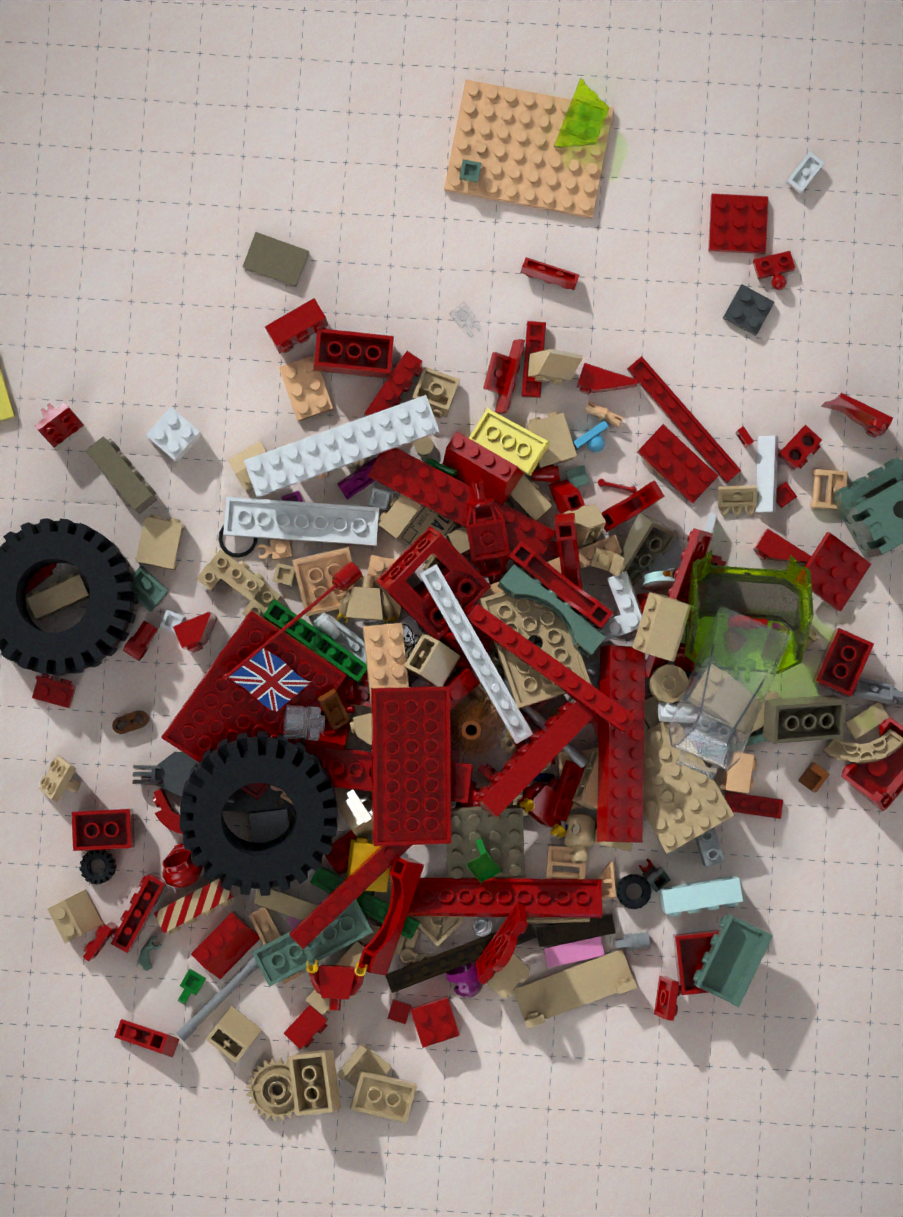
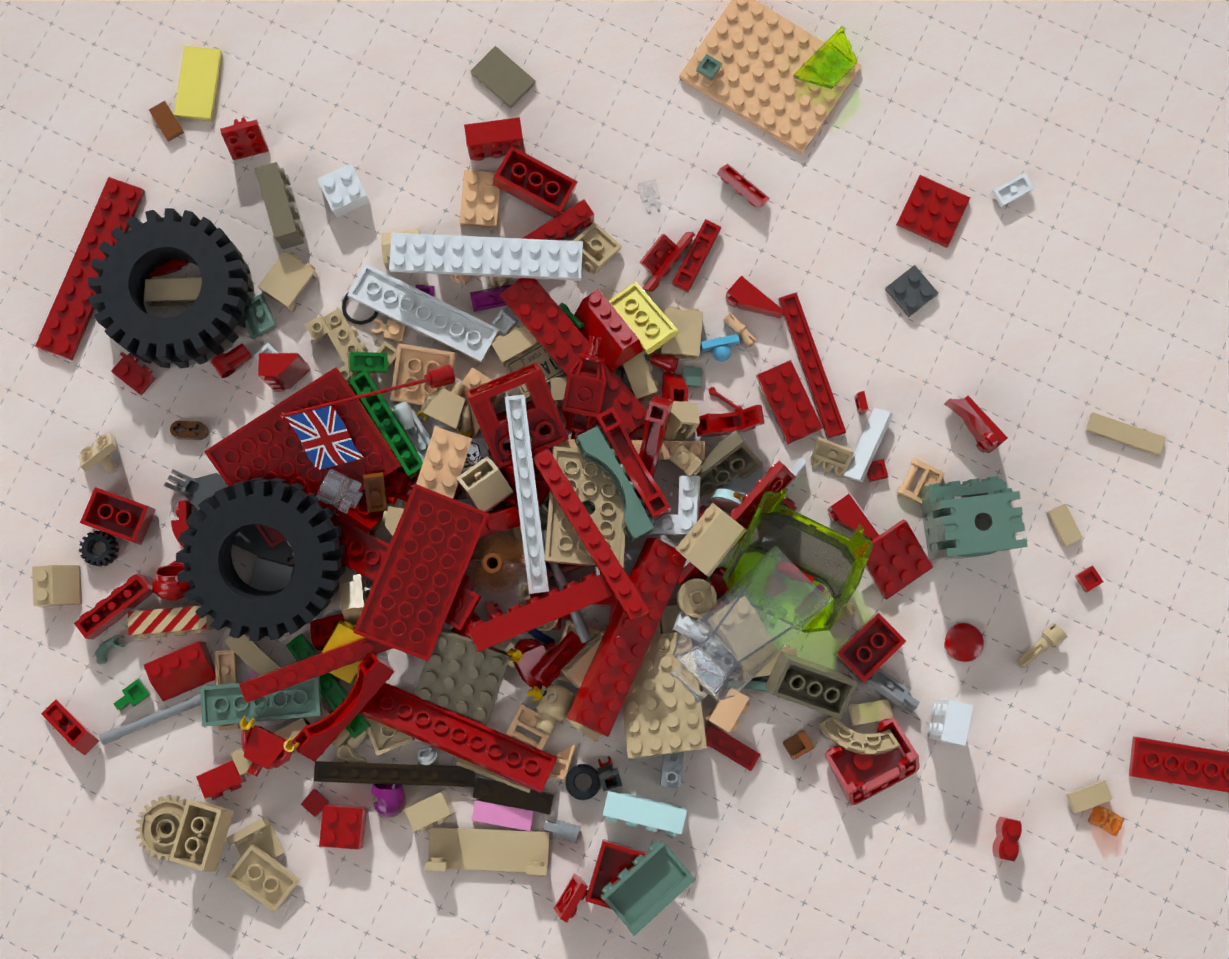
camera: 20 degrees right, 5 degrees down
(94, 947) = (65, 618): red plate -> none
(233, 1034) = (150, 758): tan slope -> none
(272, 590) = (368, 361): none -> green plate
(424, 446) = (564, 292): tan tile -> none
(483, 866) = (450, 696): green piece -> none
(502, 945) = (434, 778): red plate -> none
(553, 366) = (711, 265): tan slope -> none
(774, 266) = (951, 261): red plate -> none
(796, 444) = (907, 430): red brick -> none

